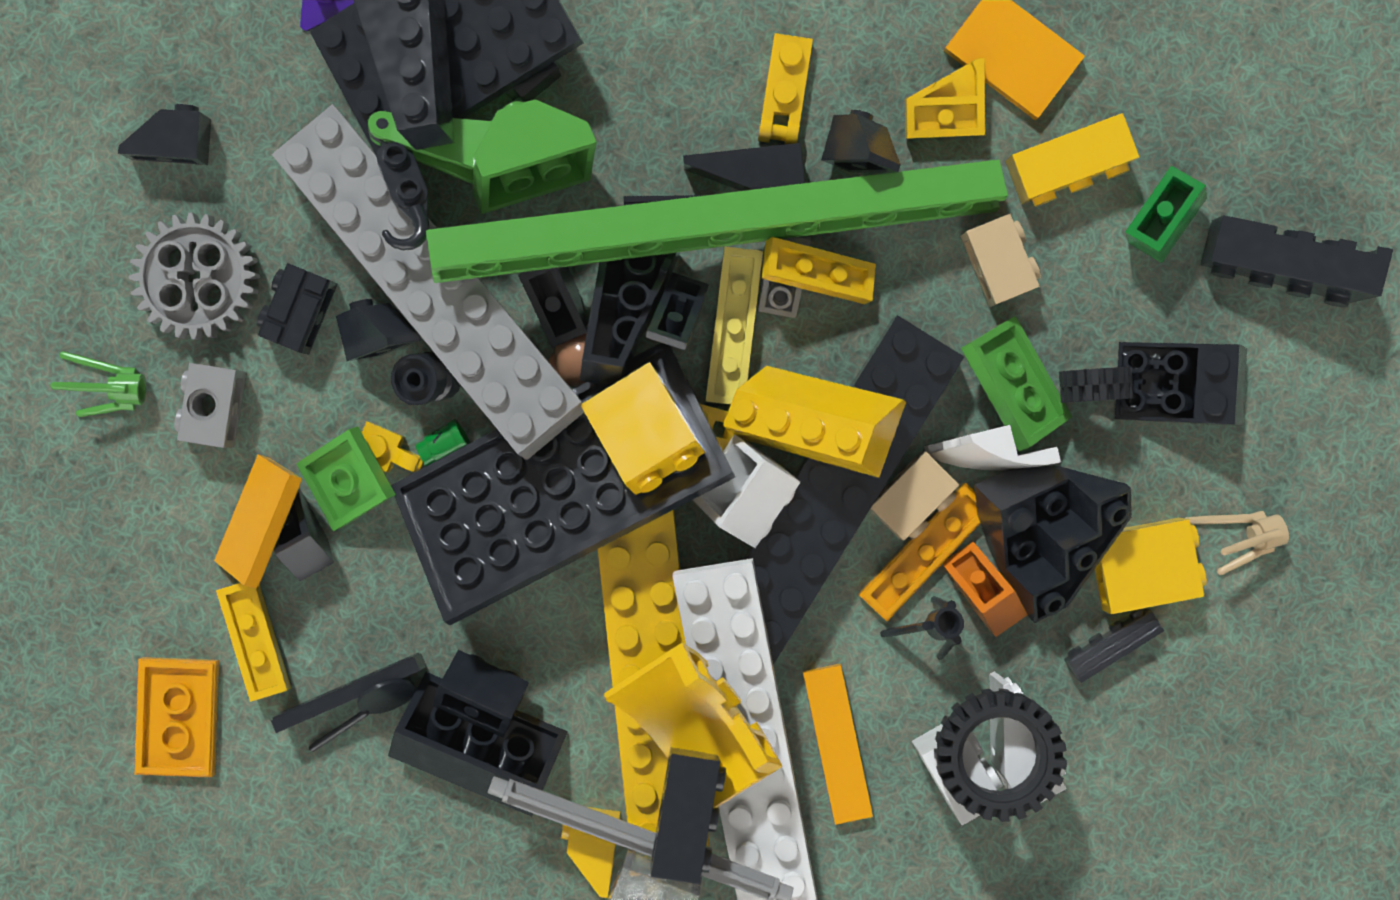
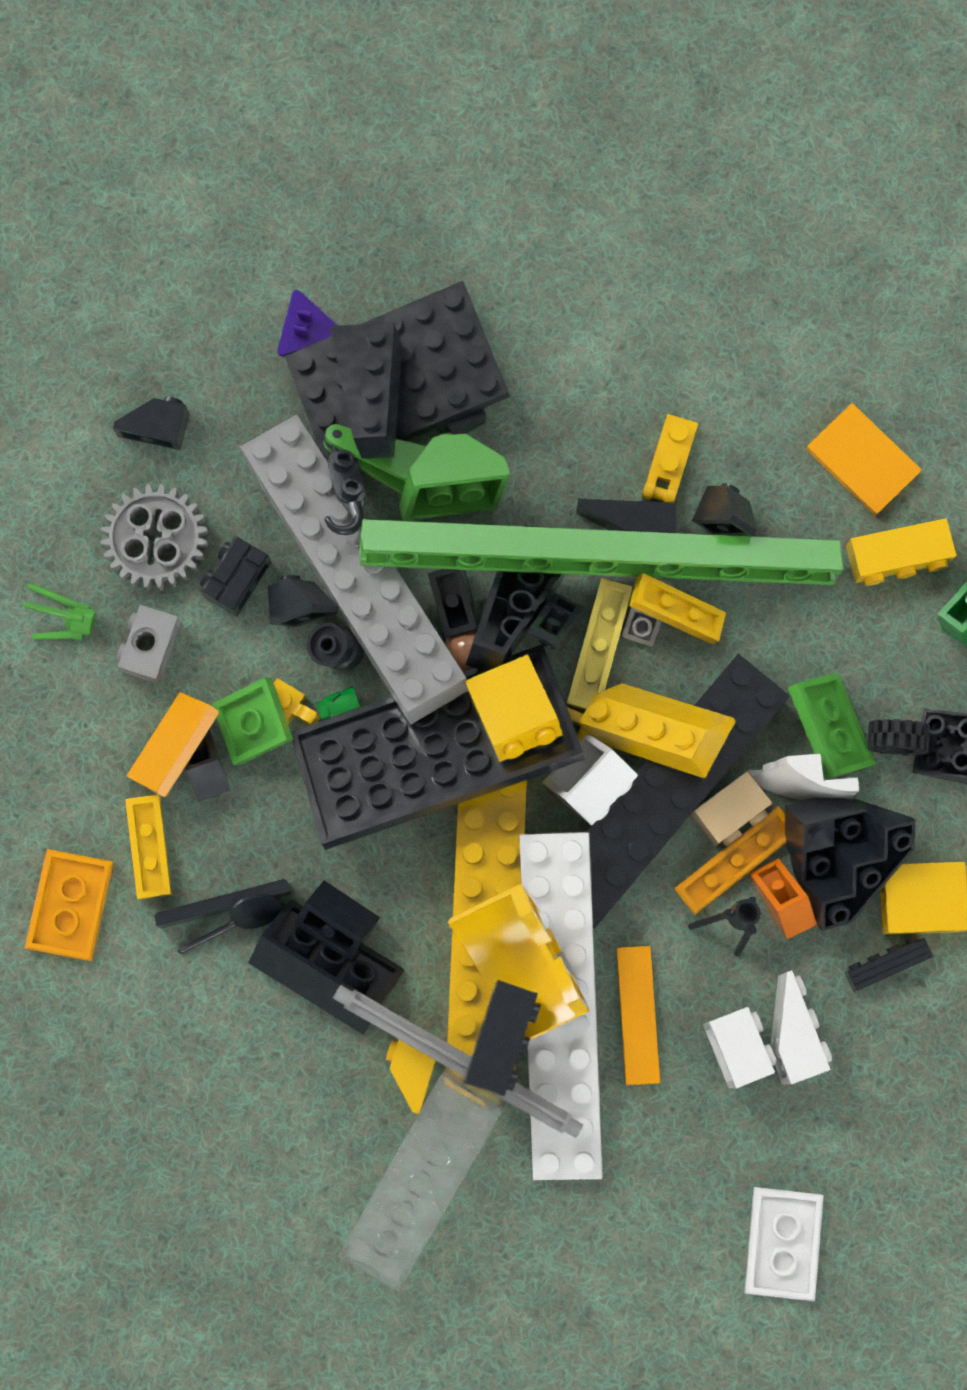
camera: 10 degrees right, 10 degrees down
(949, 106) = (804, 493): yellow wing -> none
(1001, 259) = (831, 624): tan brick -> none
(1042, 776) = (818, 1027): black tyre -> none

